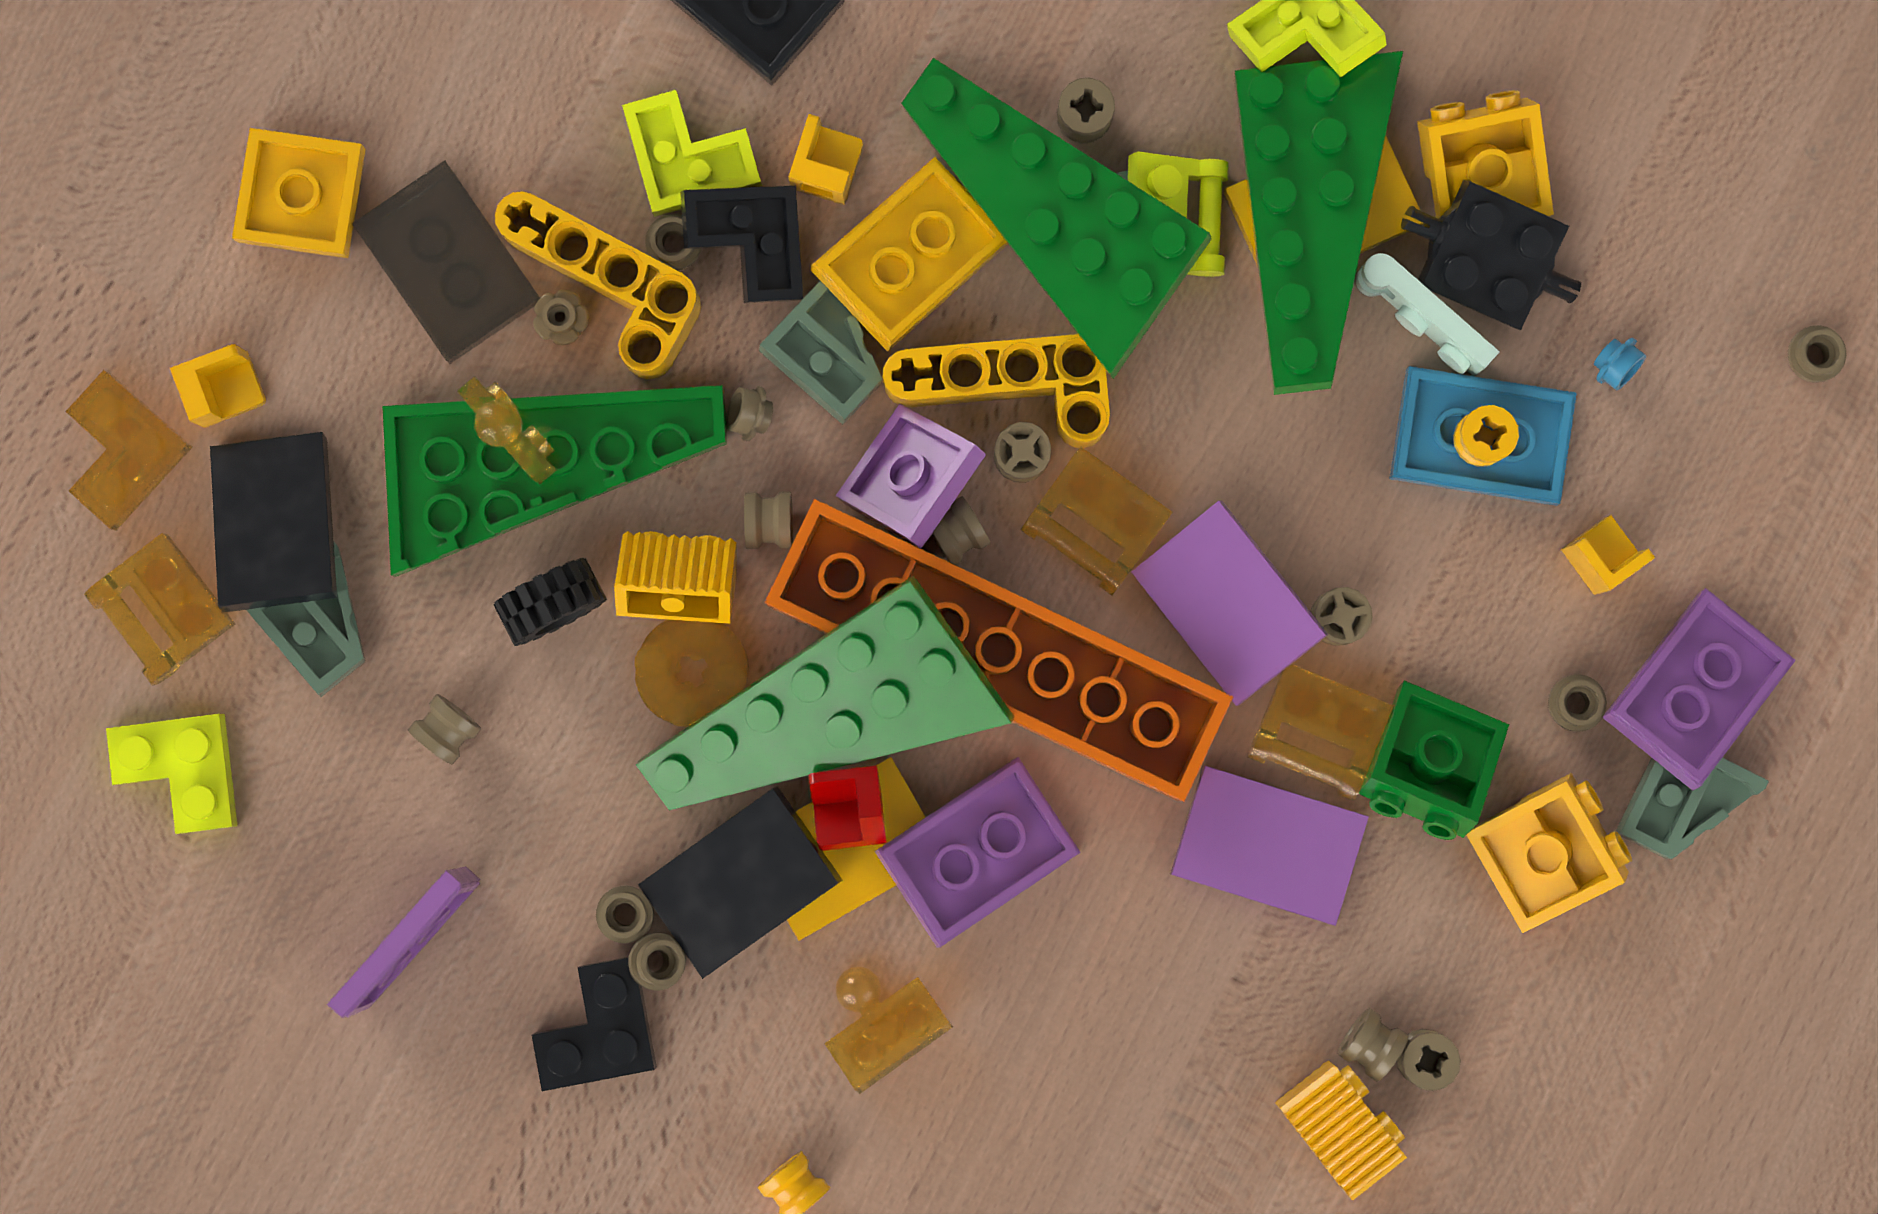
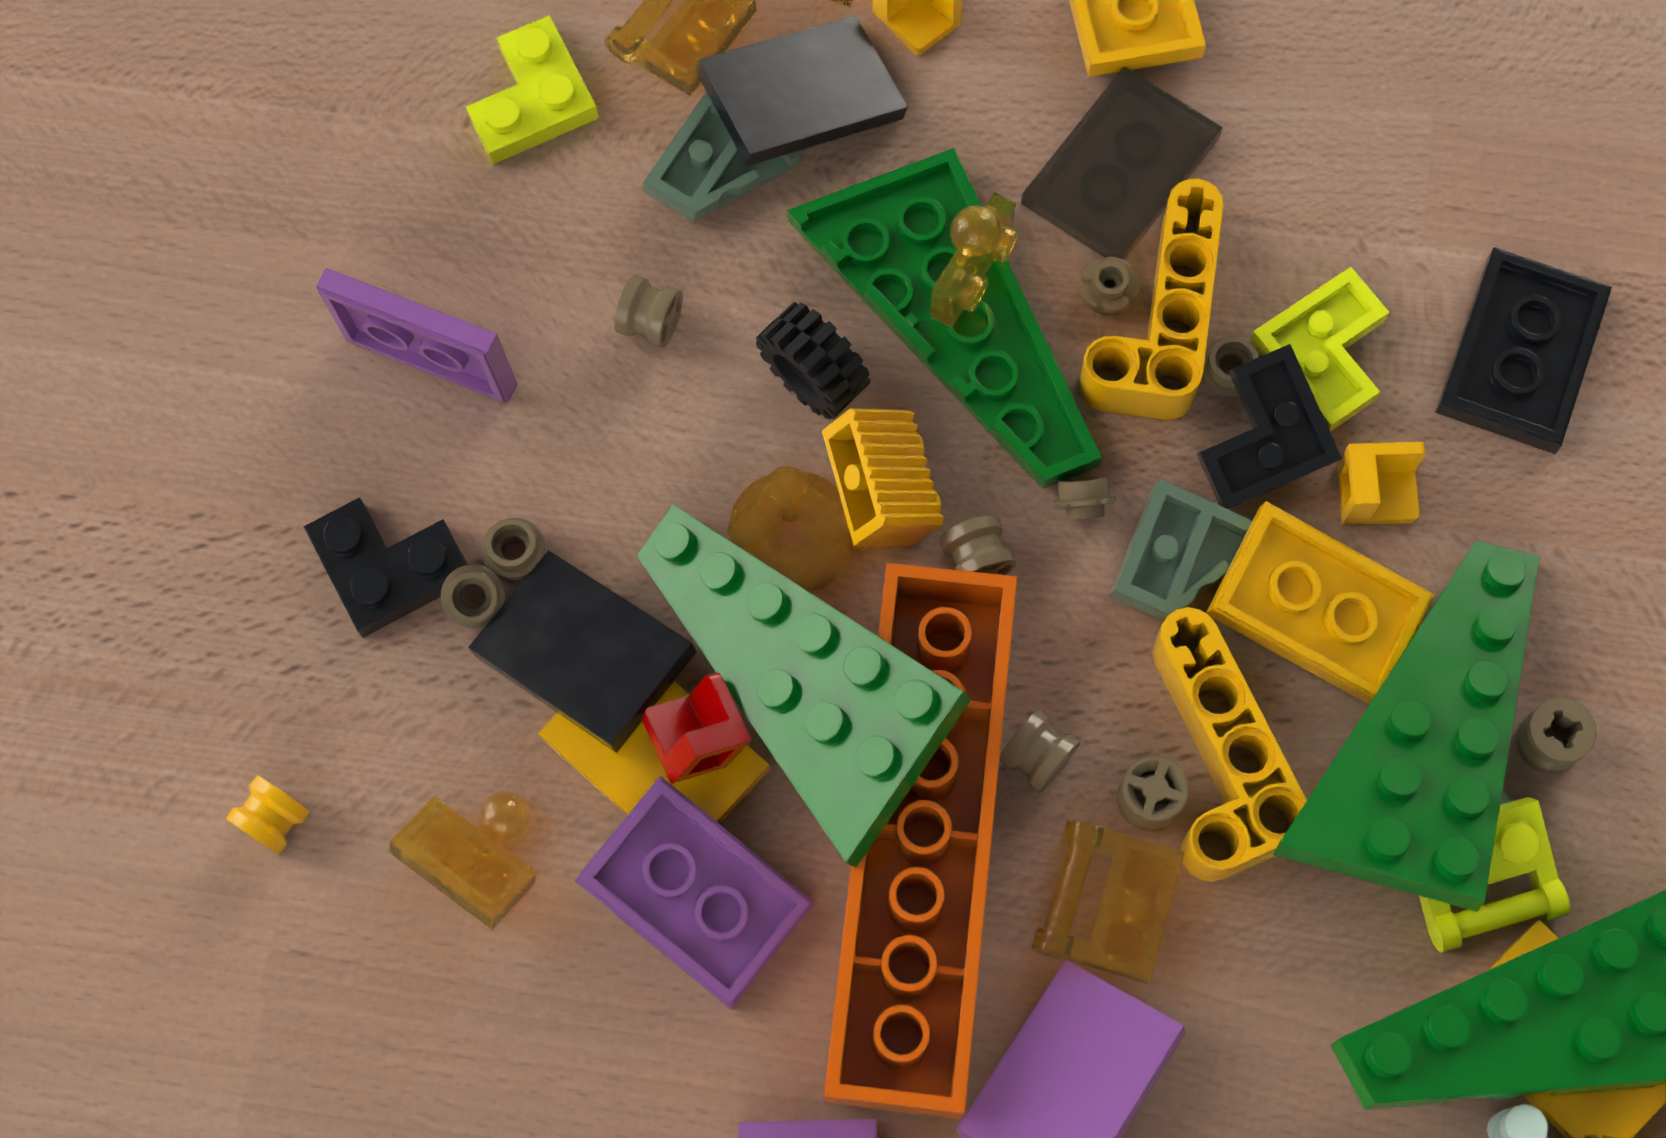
camera: 75 degrees right, 15 degrees down
(910, 475) = (1081, 678): medium lavender plate -> none

